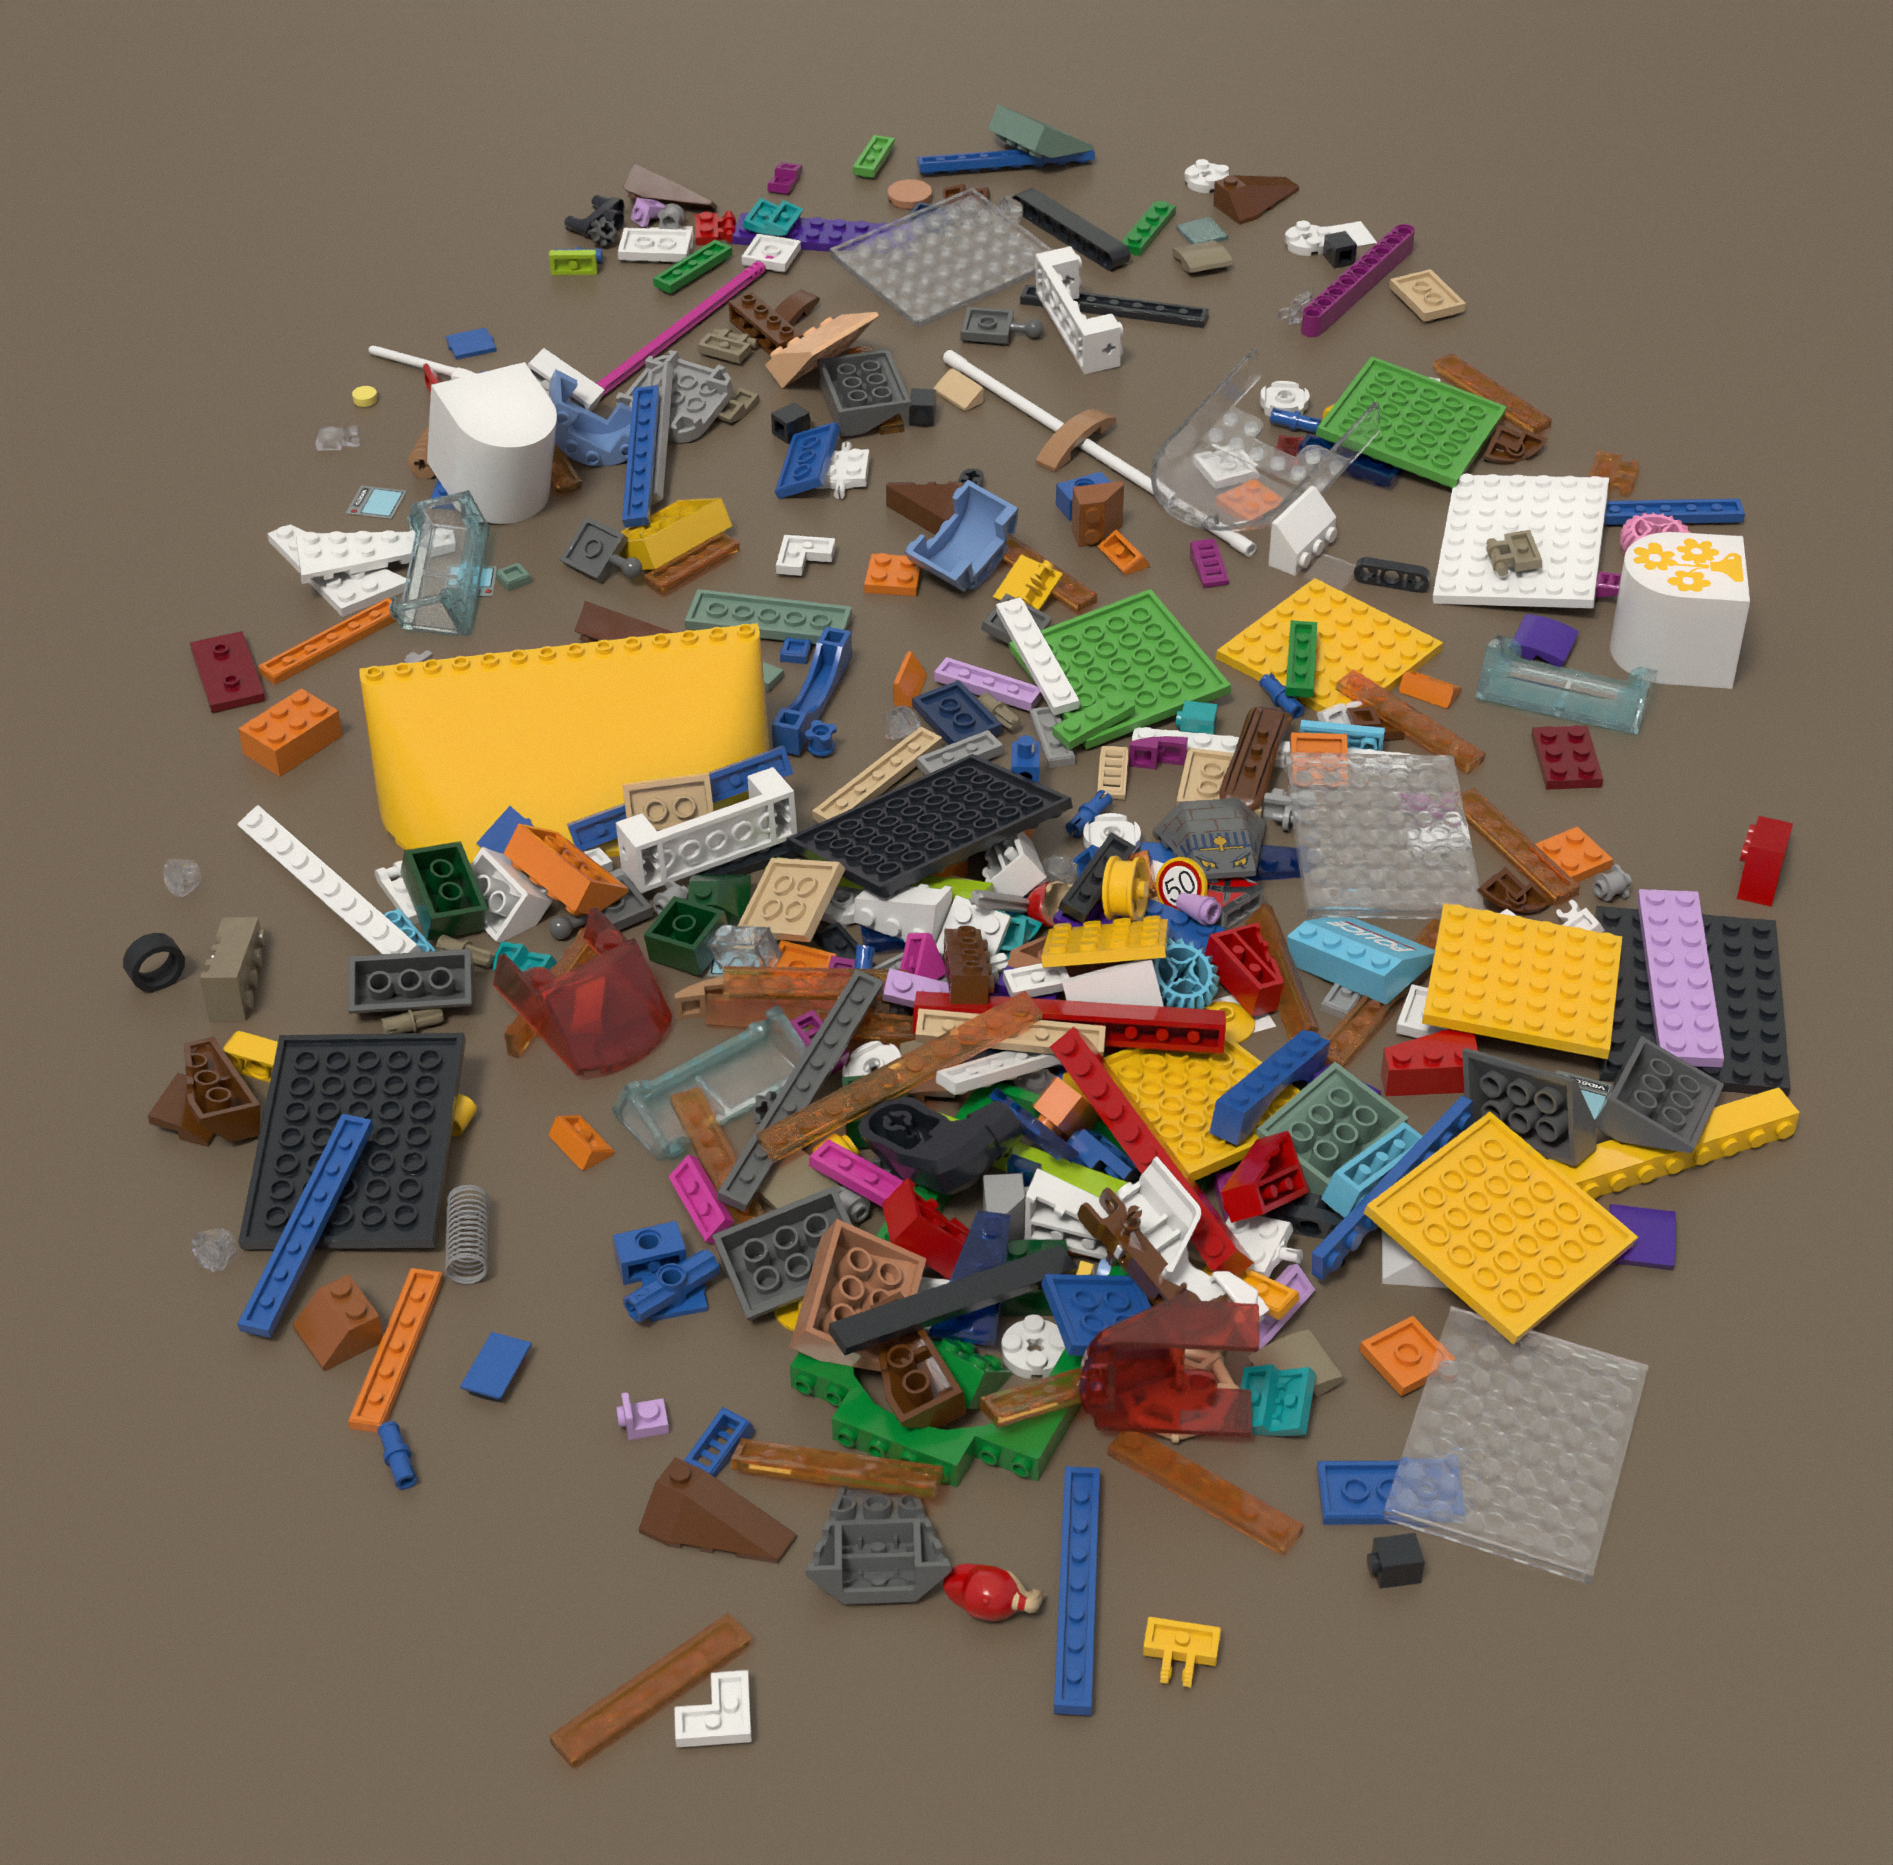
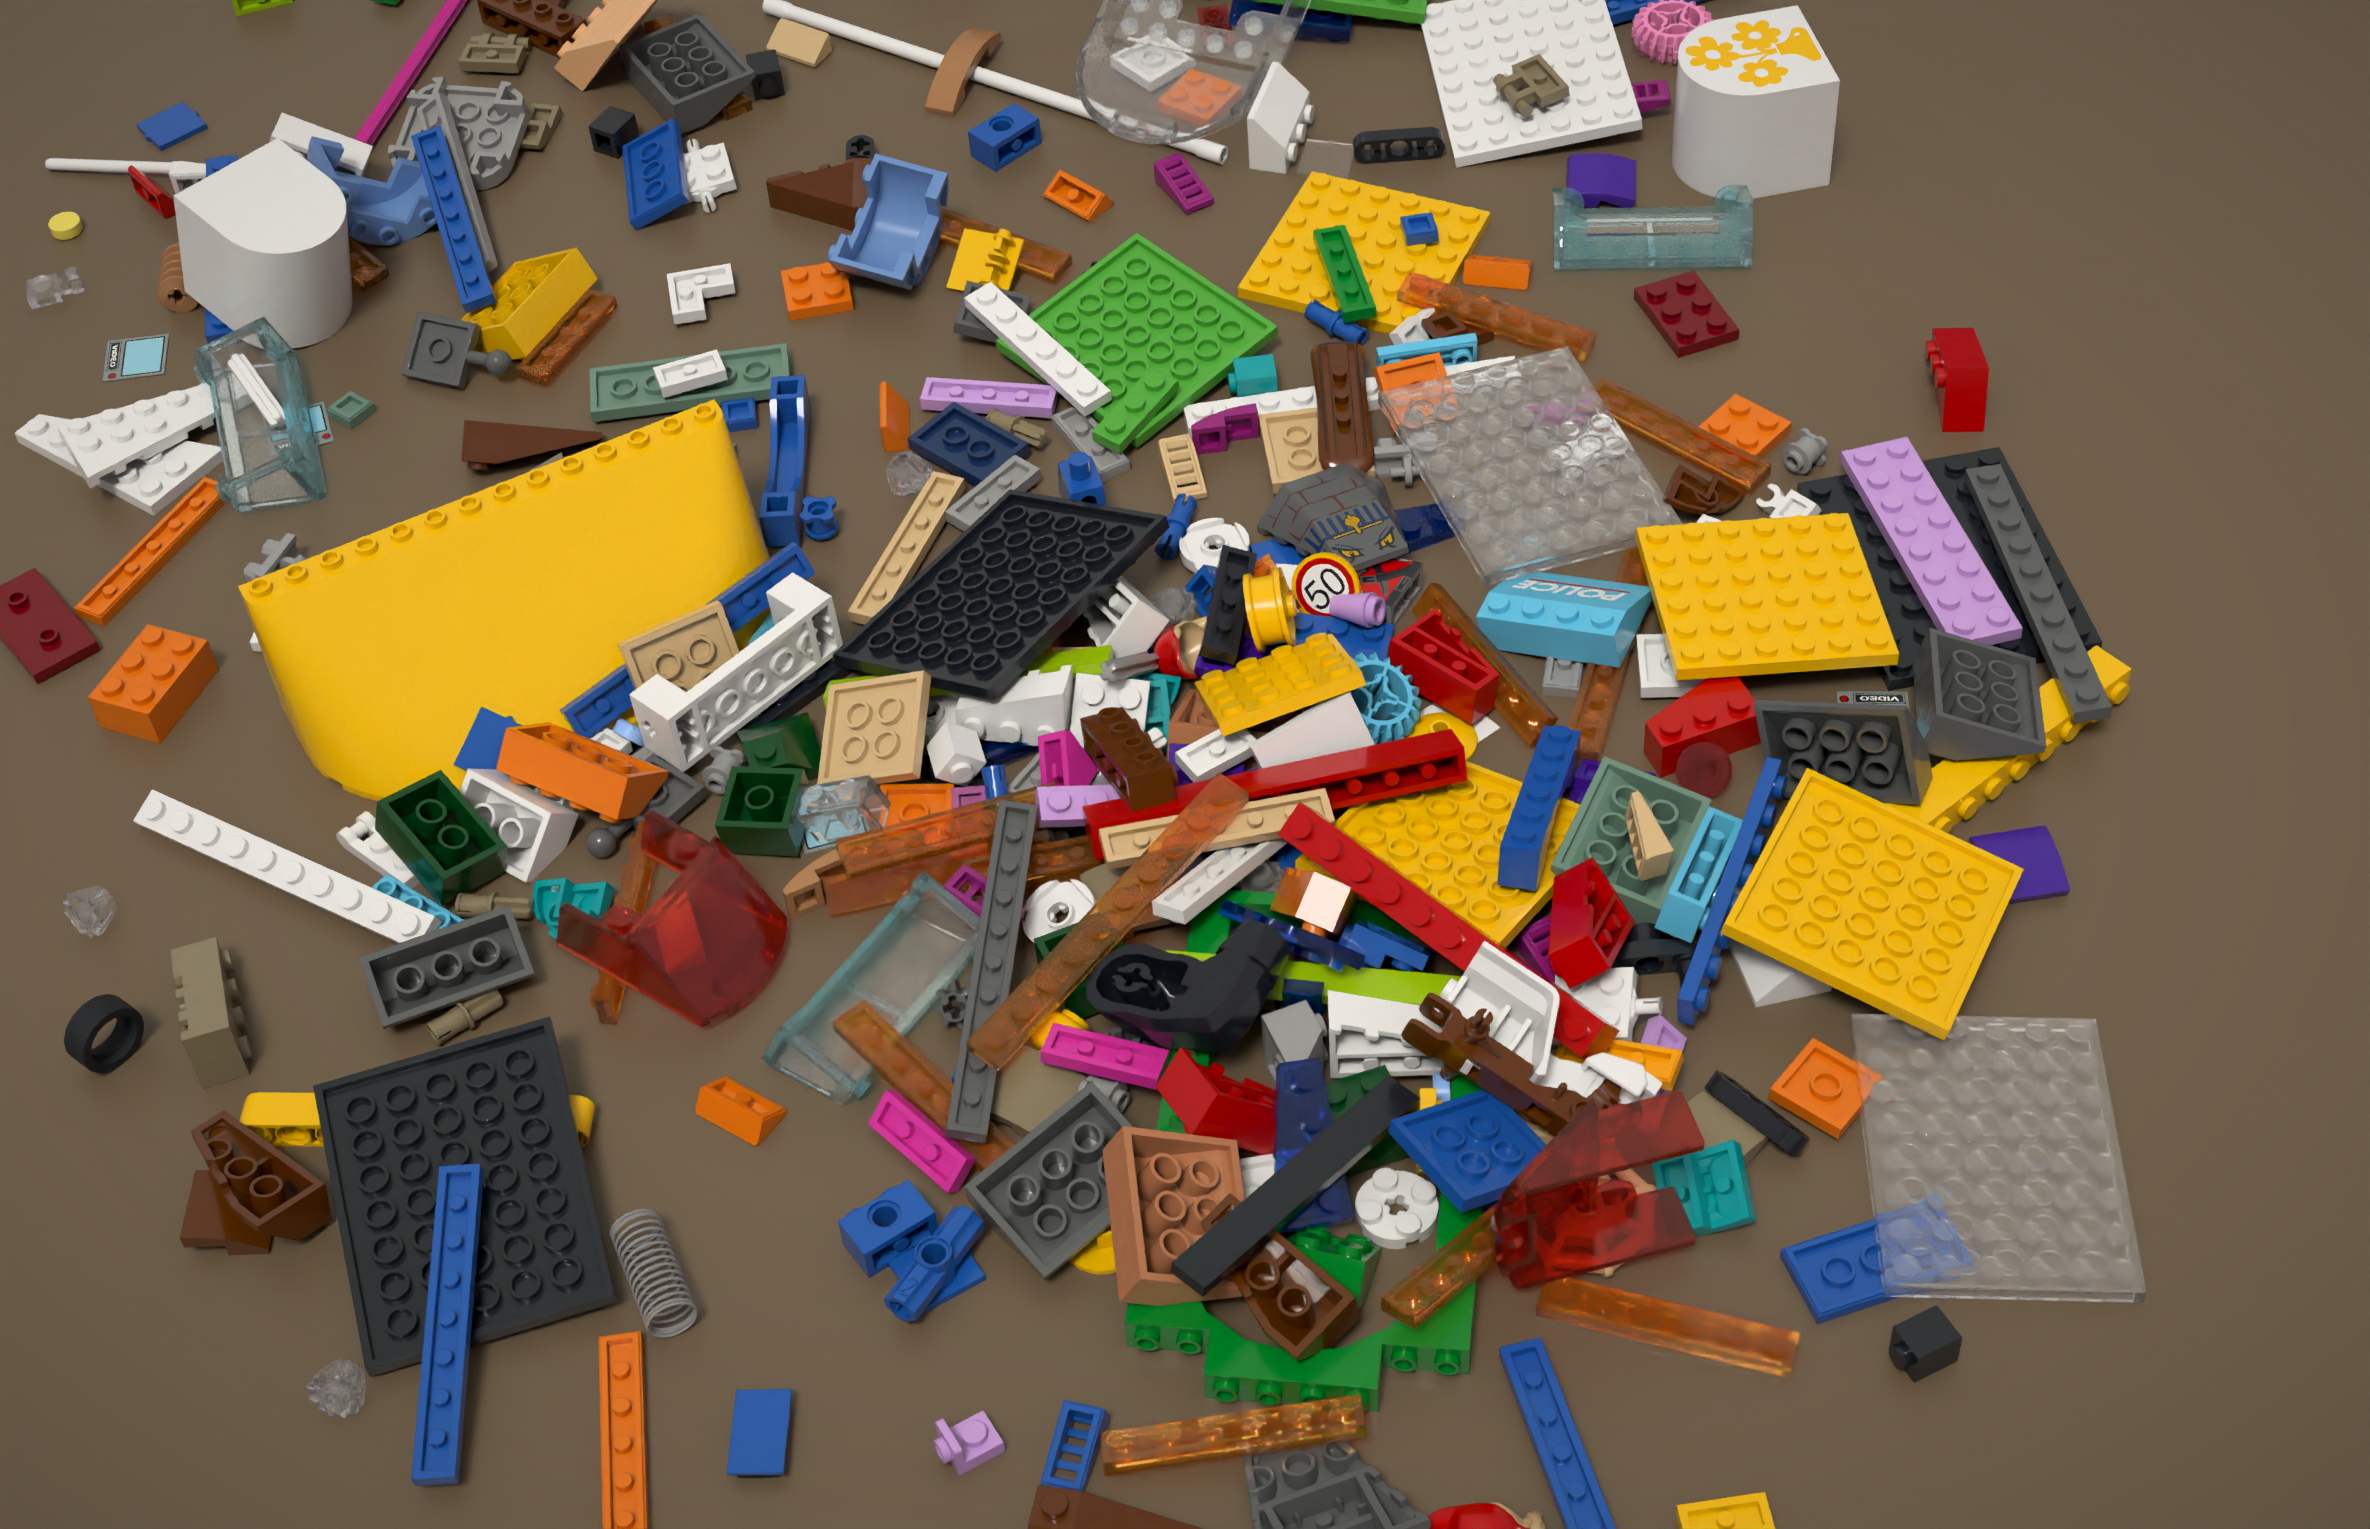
camera: 15 degrees left, 5 degrees up
(338, 1323) = (538, 1438): dark orange slope -> none
(447, 543) = (257, 390): none -> white axle
(612, 853) = (628, 731): none -> light blue tile
(768, 610) = (690, 373): none -> white plate
(844, 931) = (956, 754): none -> white brick
(1097, 512) = (1029, 154): dark orange slope -> none
(1339, 1131) = (1648, 842): none -> tan slope
(1343, 1357) = (1757, 1113): none -> black beam
(1377, 640) = (1419, 229): none -> blue tile
(1418, 1096) = (1703, 769): none -> clear red plate
(1748, 1037) = (2038, 595): none -> dark grey plate

